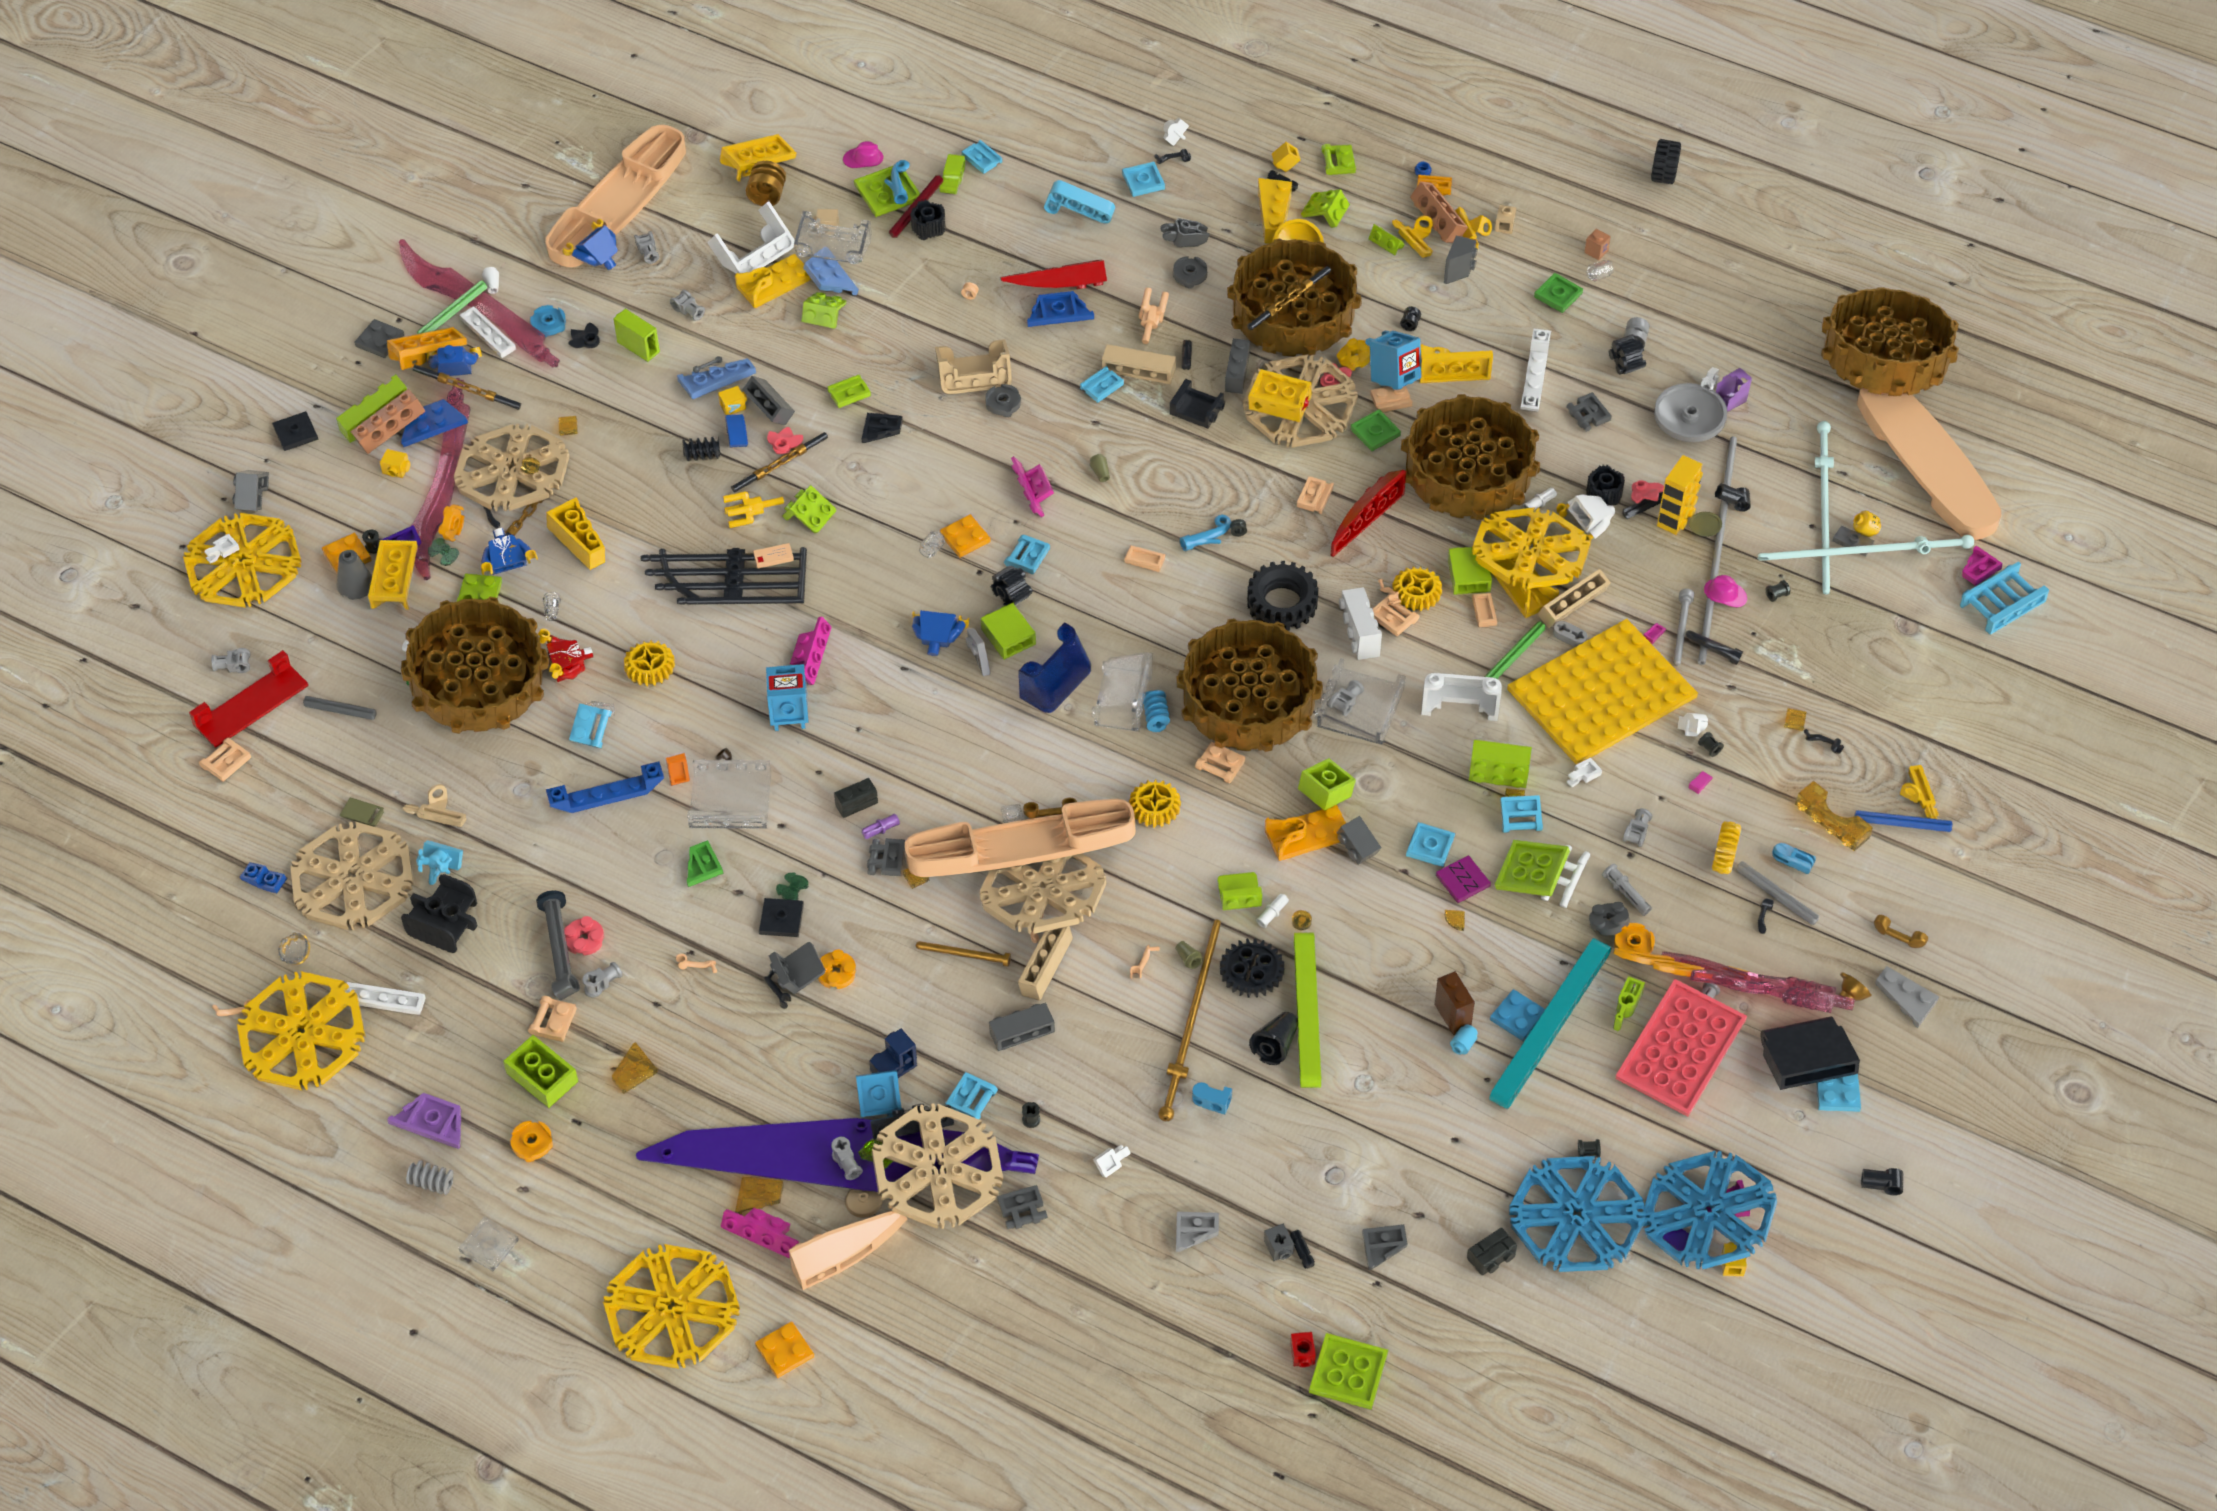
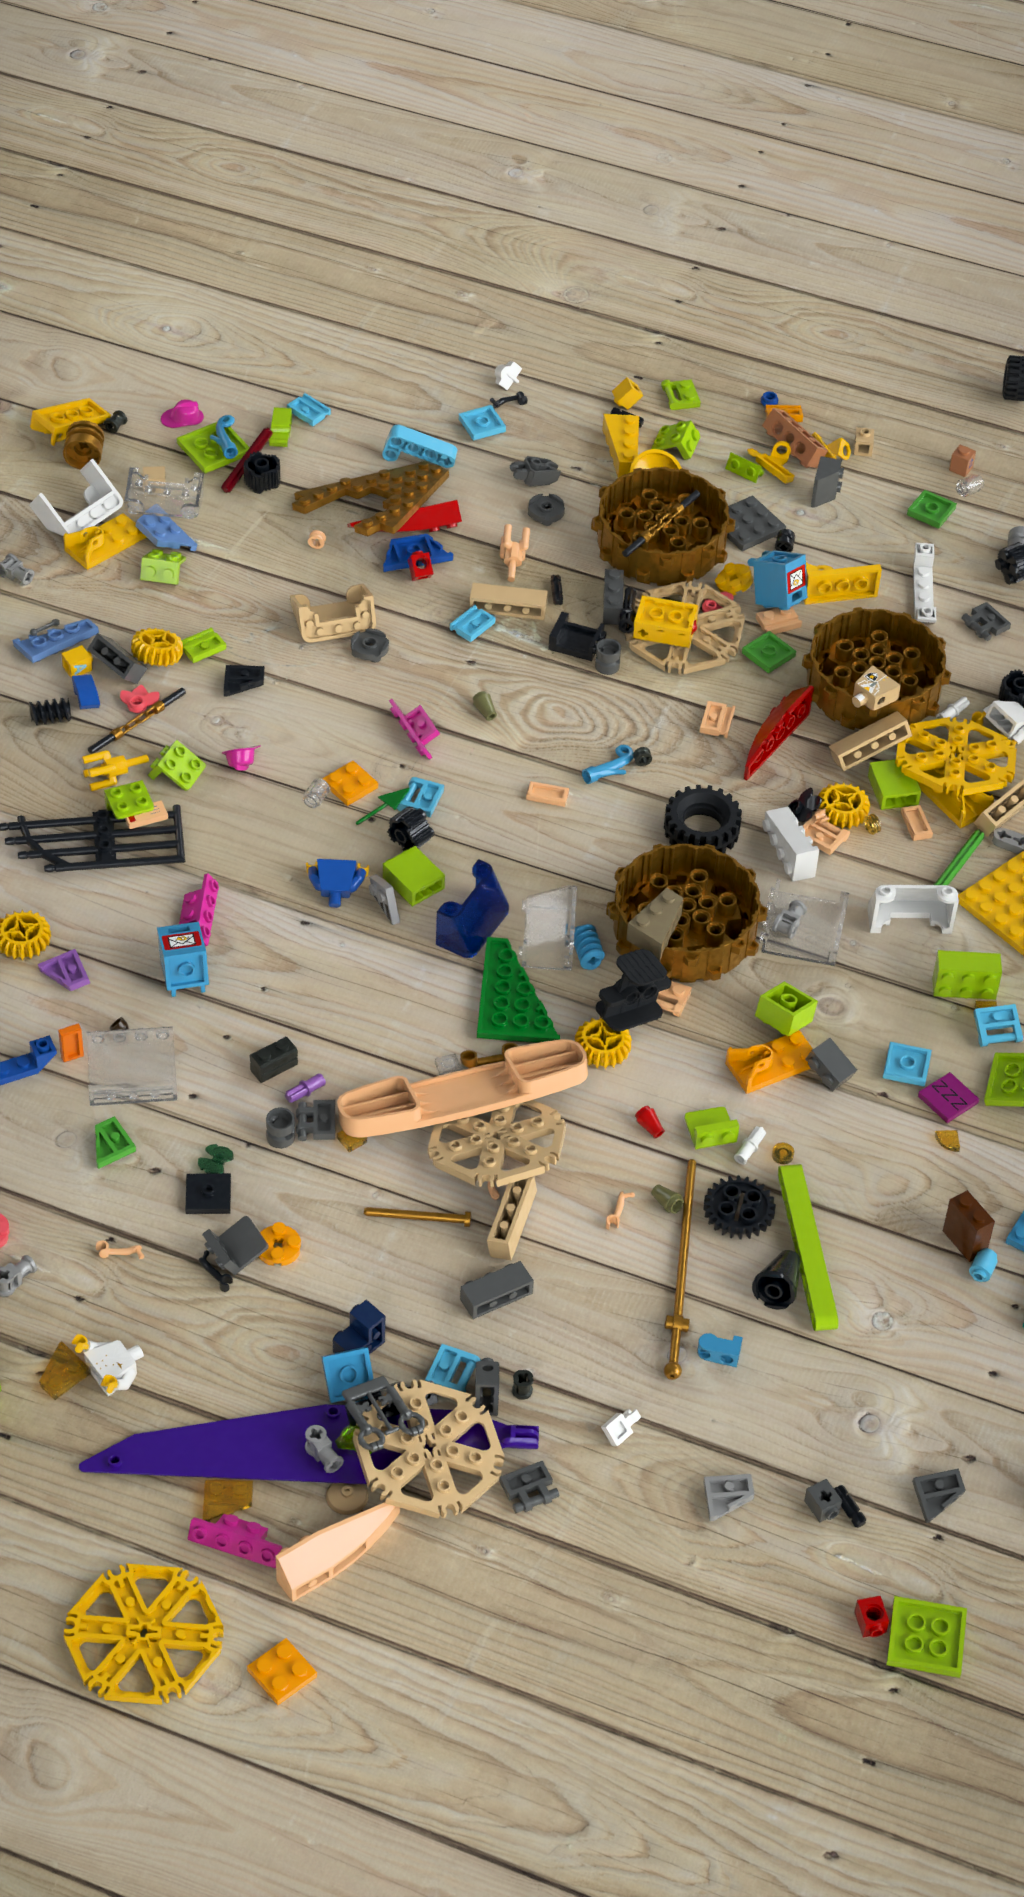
camera: 10 degrees left, 5 degrees down
(673, 1065) = (109, 1362): none -> white torso
(684, 699) = (66, 970): none -> medium lavender wing
(760, 540) = (128, 800): none -> lime bracket
(800, 159) = (115, 421): none -> pearl dark grey bush
(806, 391) = (157, 647): none -> yellow gear
(852, 862) = (280, 1127): none -> dark grey wheel
(868, 505) = (240, 758): none -> dark pink piece
(889, 1109) = (366, 1429): none -> dark grey piece
(998, 1105) = (487, 1377): none -> dark grey torso
(999, 555) = (390, 799): none -> green piece
(1055, 241) = (403, 487): none -> pearl gold wing
(1058, 331) = (417, 573): none -> red brick
(1076, 756) = (509, 1001): none -> green wing
(1184, 880) = (649, 1121): none -> red cone
(1188, 761) = (634, 996): none -> black piece
(1214, 697) = (656, 923): none -> dark tan wedge
(1222, 426) = (608, 656): none -> dark grey wheel
(1247, 383) = (628, 614): none -> black pin
(1380, 587) = (805, 805): none -> black plate
(1382, 297) = (752, 524): none -> dark grey plate
(1441, 609) = (872, 824): none -> clear yellow tile
(1452, 527) = (870, 741): none -> tan brick
(1459, 480) = (875, 690): none -> tan torso

